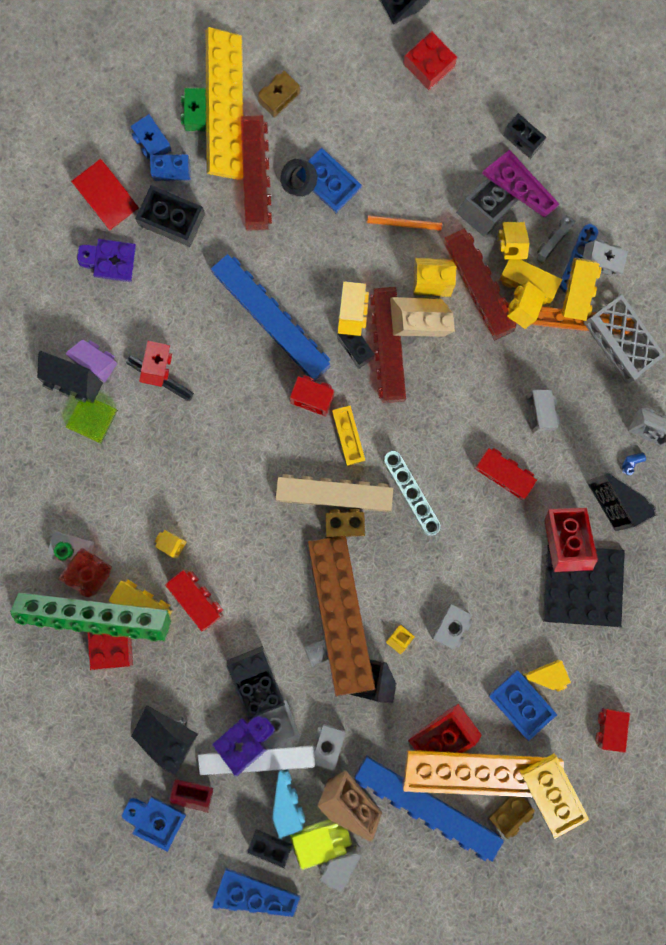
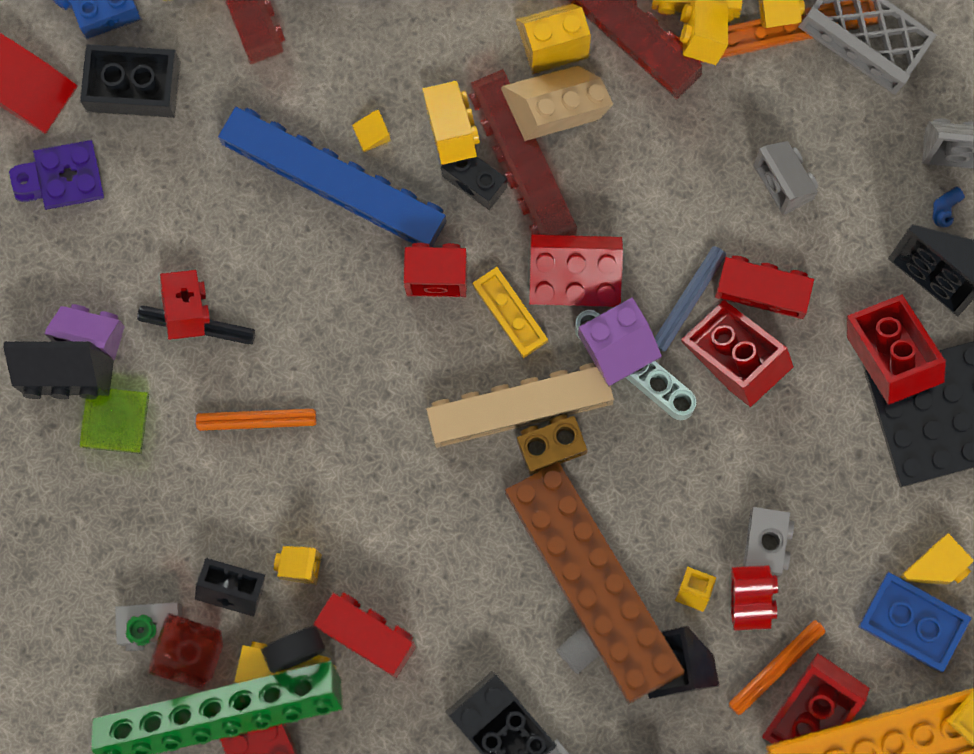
camera: 10 degrees left, 5 degrees down
(125, 543) = (229, 587): none -> black brick
(148, 595) = (293, 649): none -> black tyre
(175, 447) = (256, 419): none -> orange axle
(304, 296) = (371, 131): none -> yellow slope
(396, 425) = (576, 270): none -> brick
(407, 478) = (619, 341): none -> medium lavender slope
(431, 658) = (752, 597): none -> red brick
(431, 703) = (777, 667): none -> orange axle
(458, 464) = (689, 298): none -> sand blue axle
(476, 507) = (739, 352): none -> red slope

